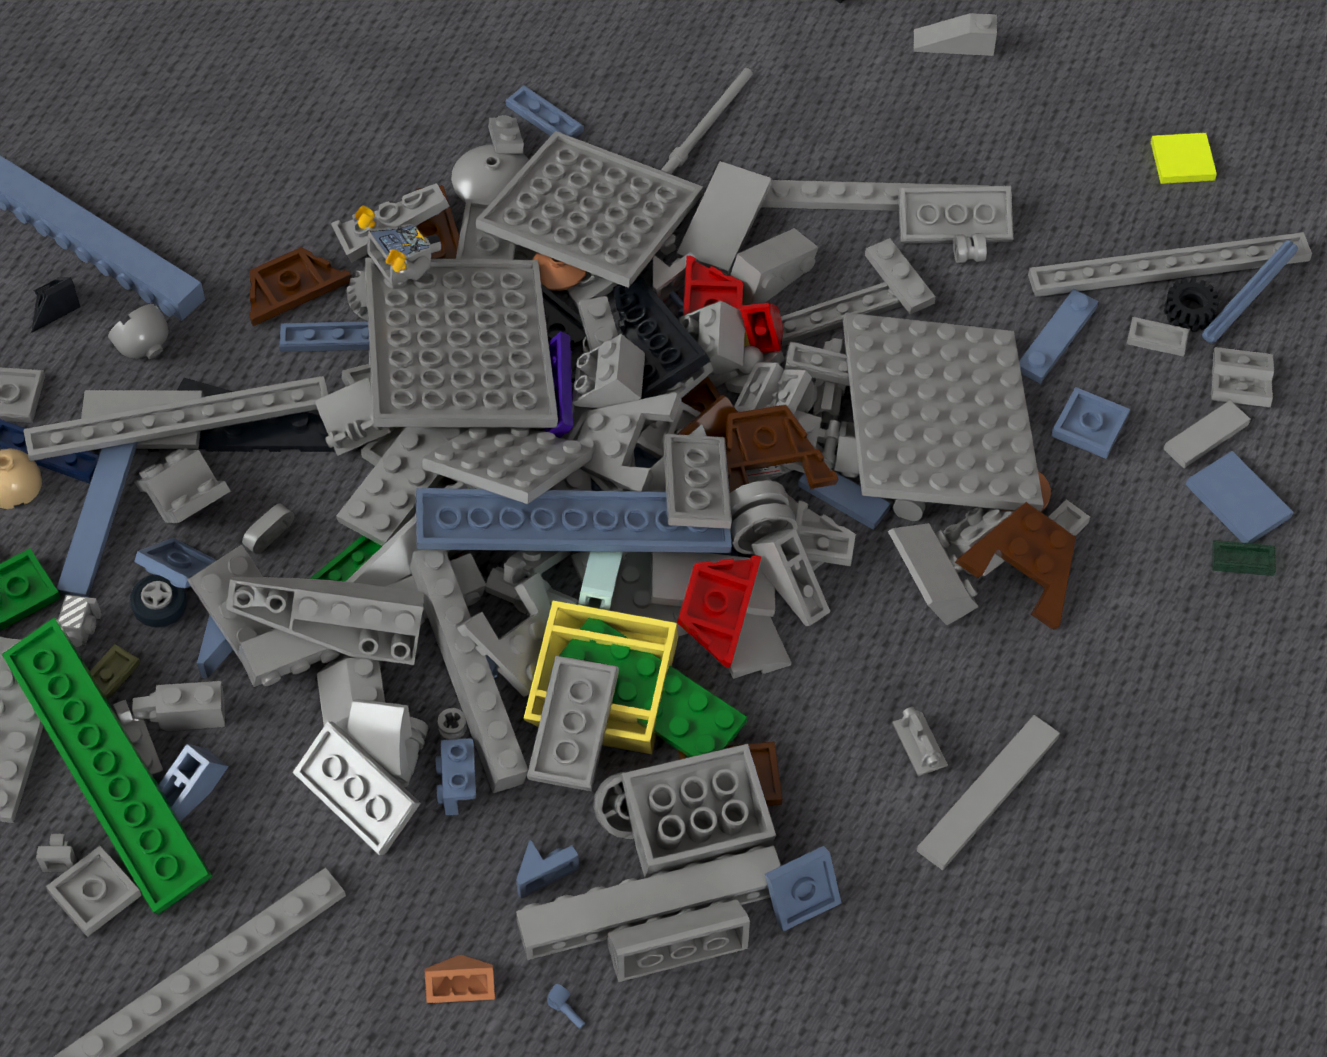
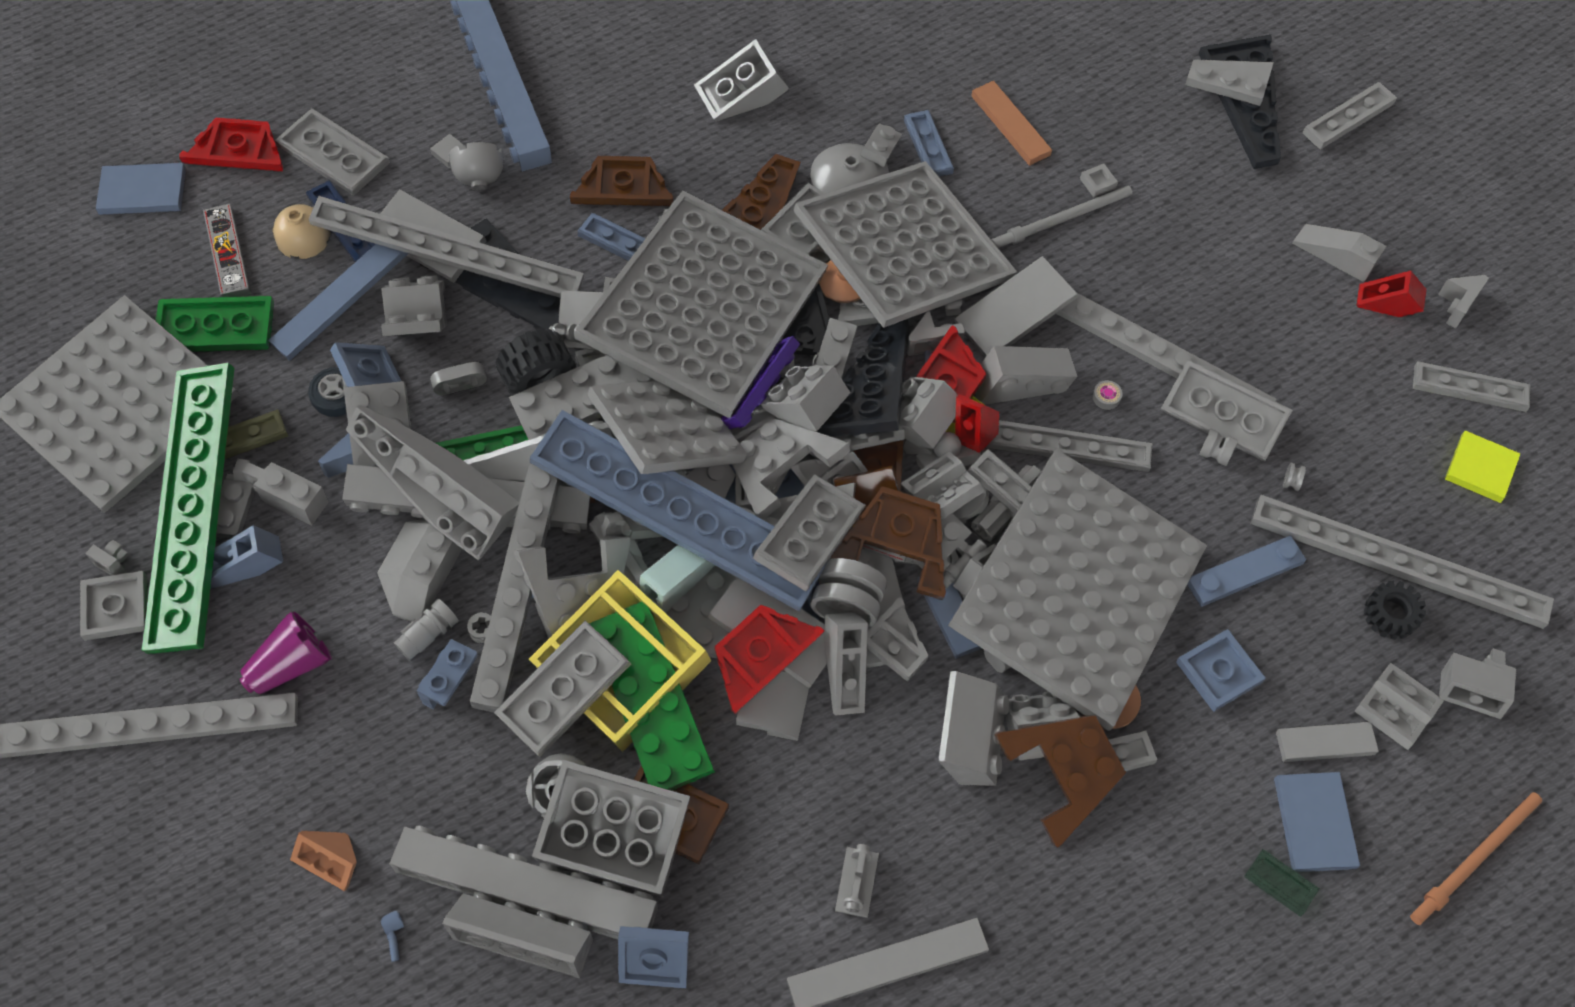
camera: 30 degrees right, 5 degrees up
(54, 301) = (435, 107): black slope -> none
(79, 618) = (262, 374): light grey brick -> none
(96, 336) = (442, 148): none -> light grey tile
(295, 840) = (284, 655): none -> magenta cone
(336, 141) = (741, 83): none -> light grey slope
(337, 473) = (533, 360): none -> black tyre
(356, 788) = (363, 639): tile -> none
(381, 732) = (402, 605): light grey slope -> none
(397, 250) = (709, 195): torso -> none
(413, 210) = (721, 171): light grey wing -> none
(540, 872) = (452, 800): sand blue slope -> none
(605, 62) = (1011, 123): none -> nougat tile
(717, 75) = (1098, 180): none -> light grey plate
(849, 252) = (1107, 394): none -> tile
(900, 276) = (1135, 440): light grey plate -> none
(1025, 54) = (1393, 295): none -> red slope
(1045, 240) = (1294, 477): none -> light grey bush
(1080, 25) = (1462, 294): none -> light grey slope
(1133, 98) = (1471, 386): none -> light grey tile
(1158, 336) = (1342, 622): light grey tile -> none
(1249, 292) = (1460, 628): sand blue axle -> none
(1292, 327) = (1479, 685): none -> light grey hinge

